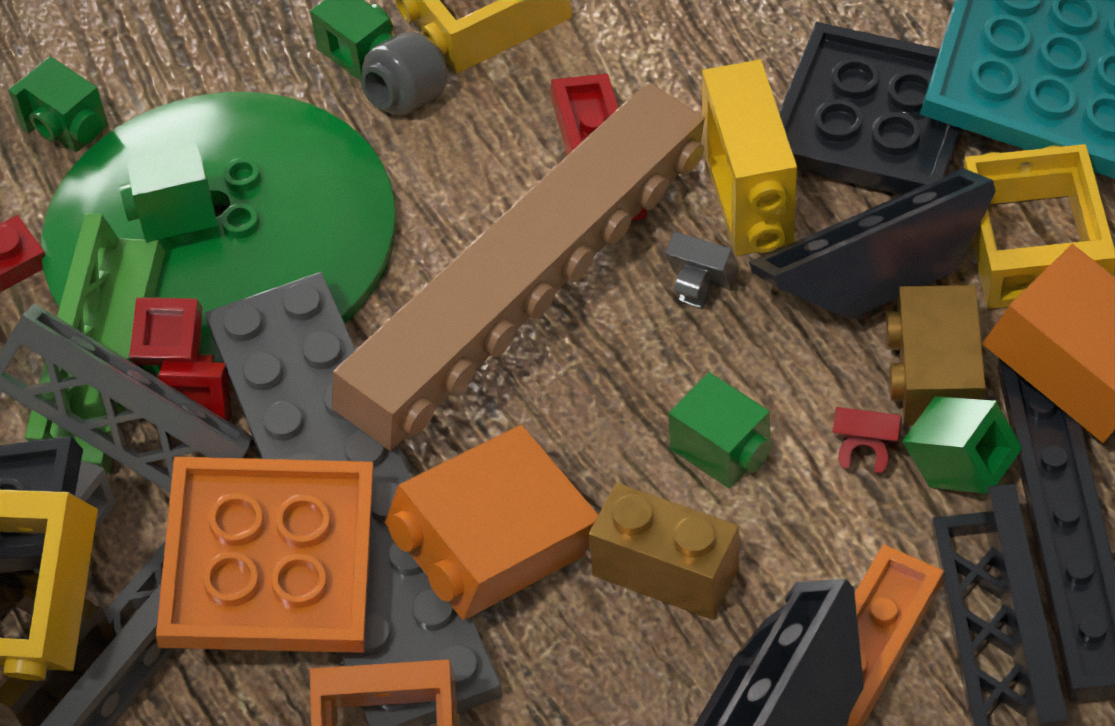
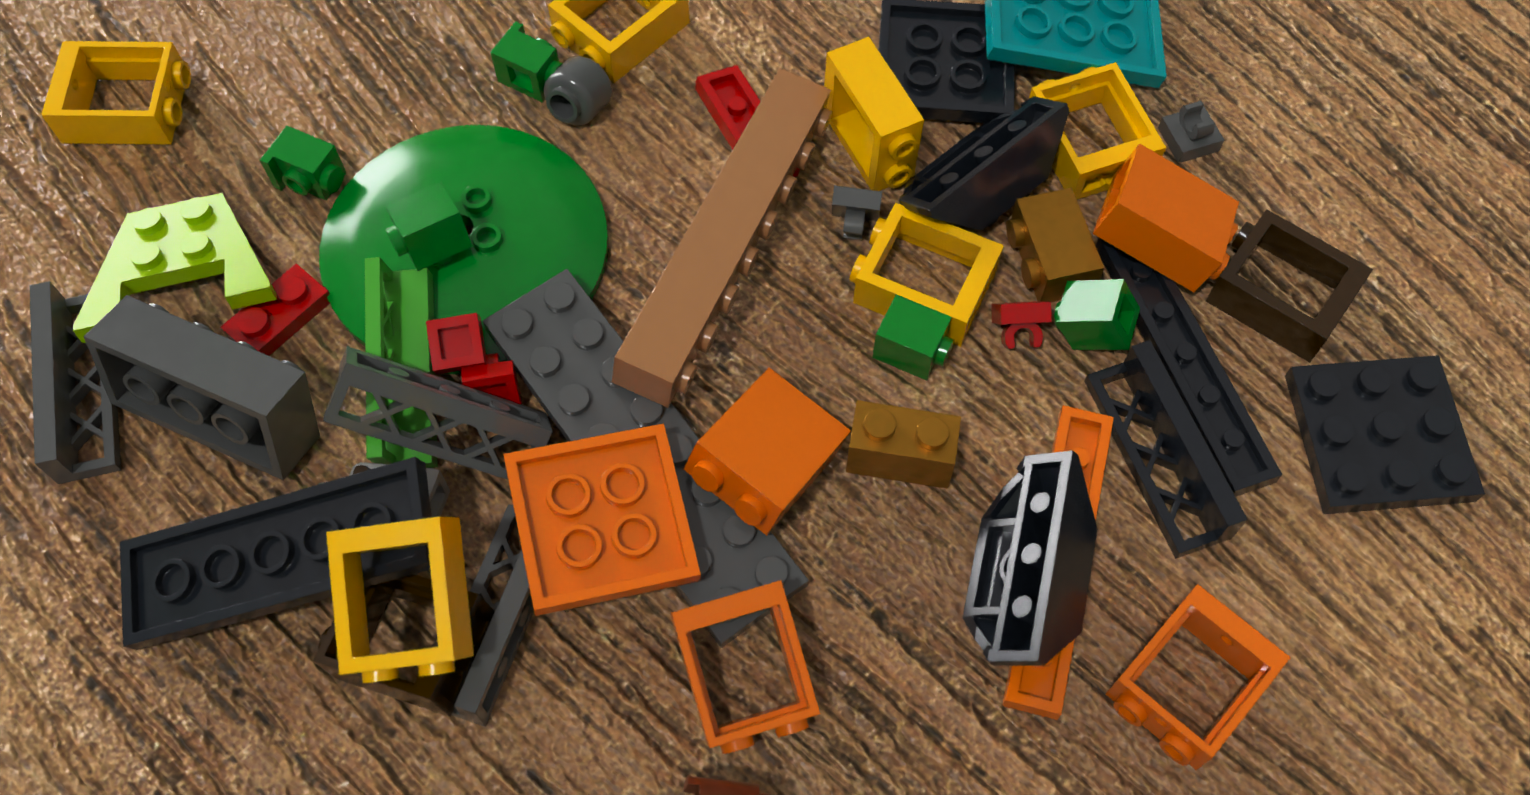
camera: 20 degrees left, 10 degrees up
(810, 394) = (936, 236): none -> yellow window

